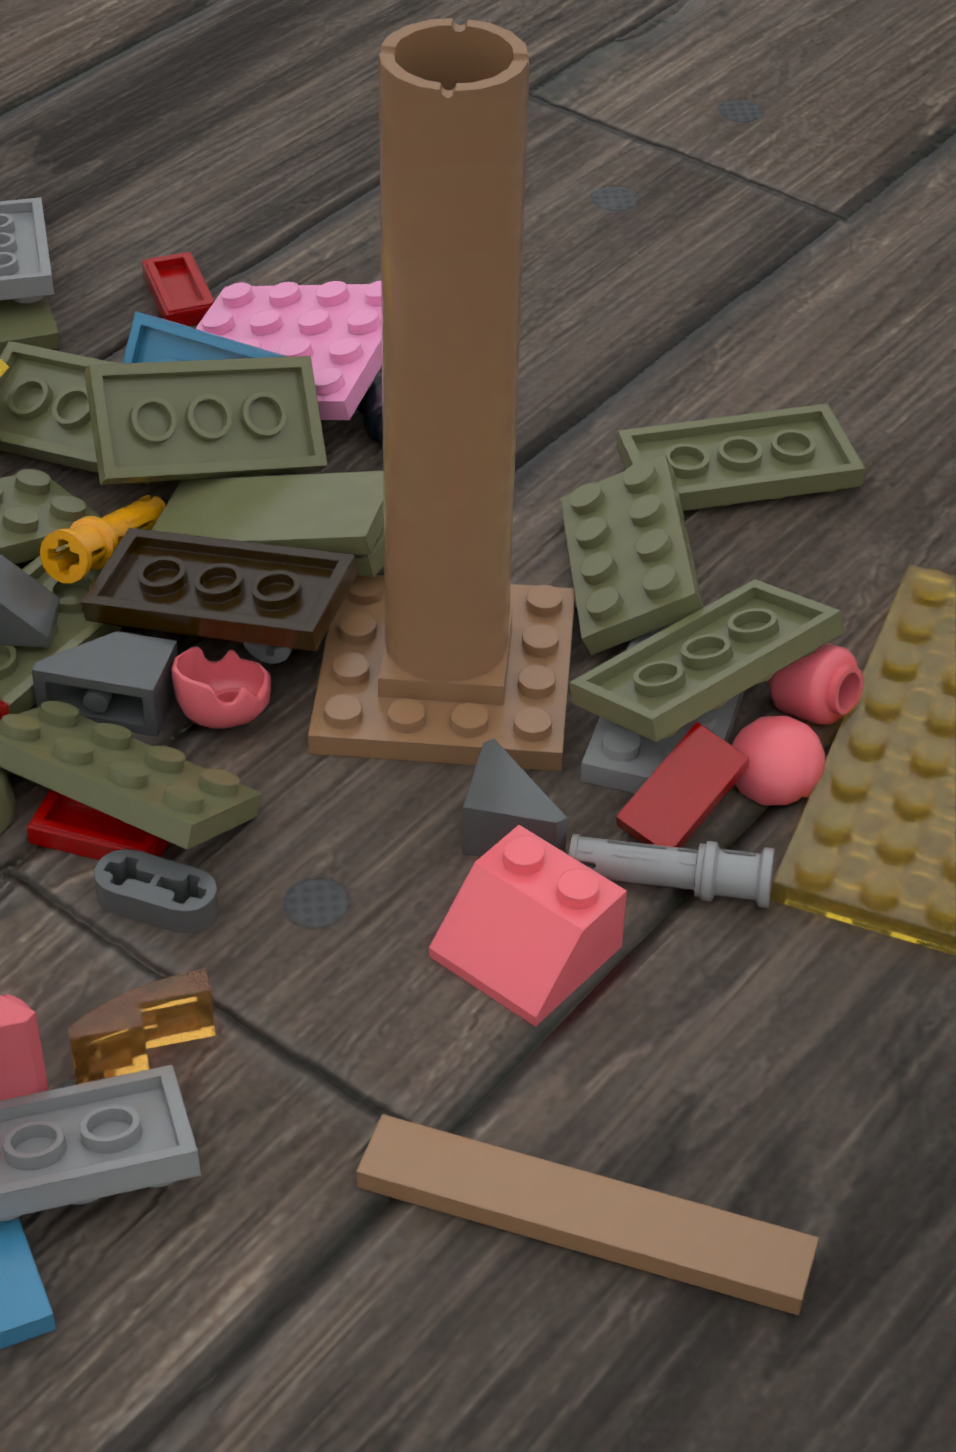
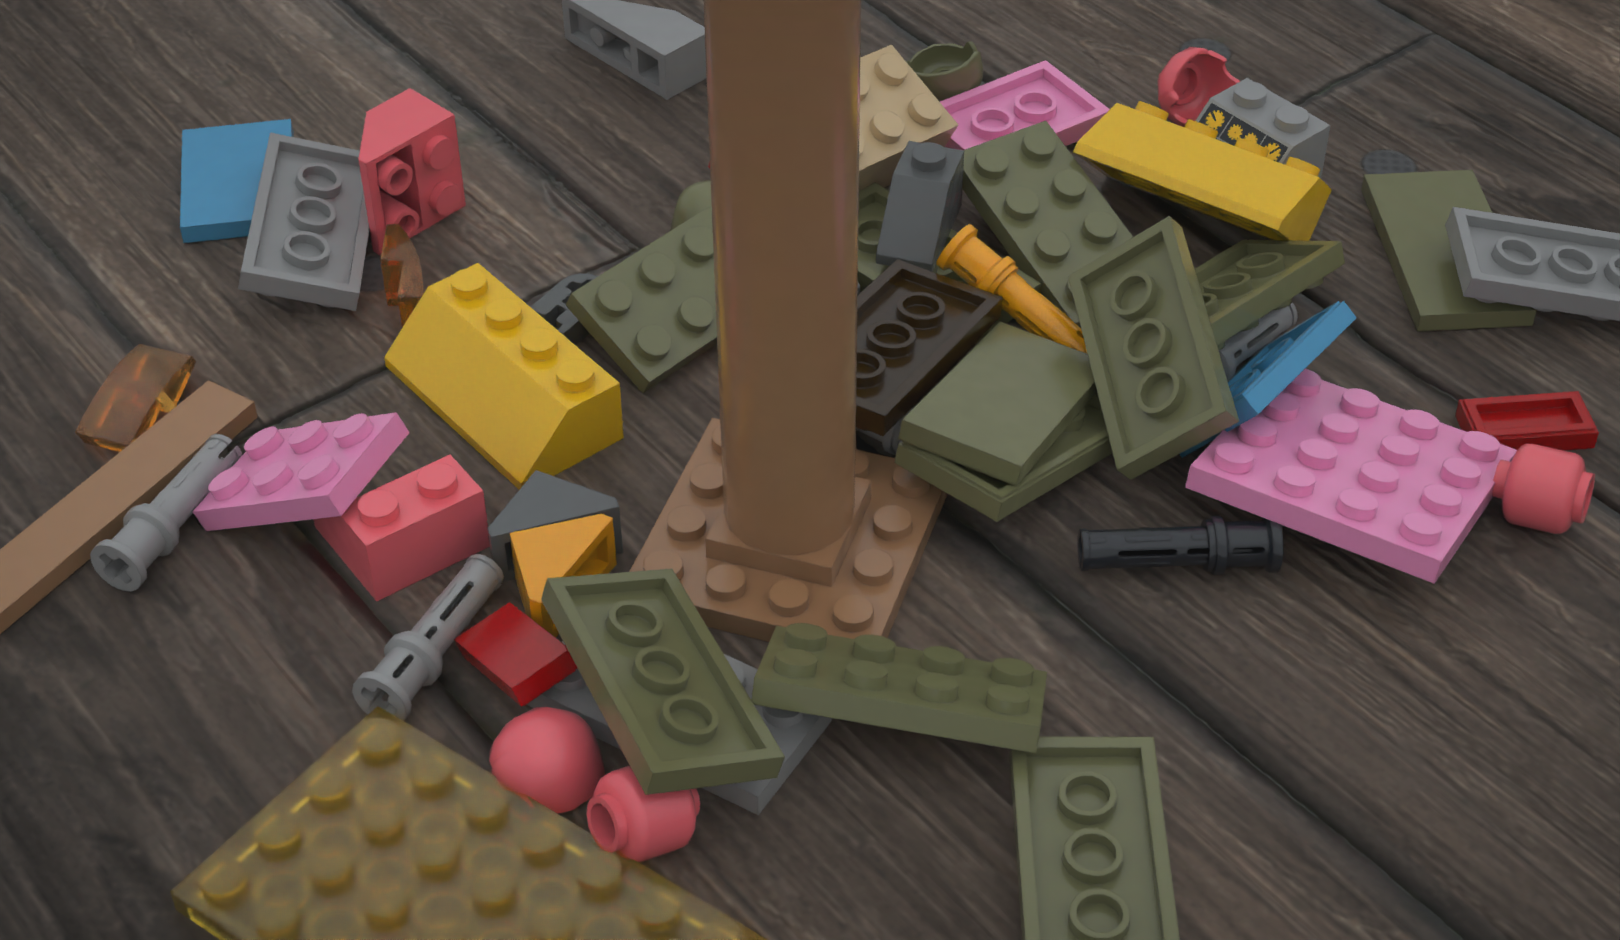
camera: 105 degrees right, 0 degrees up
(278, 258) = (1544, 488): none -> coral head
(291, 899) = (505, 377): none -> yellow slope
(392, 1231) = (134, 395): none -> clear orange slope
(517, 1000) = (300, 472): none -> bright pink plate
(581, 785) = (556, 551): none -> light orange slope
(615, 1135) = (154, 527): none -> light grey pin

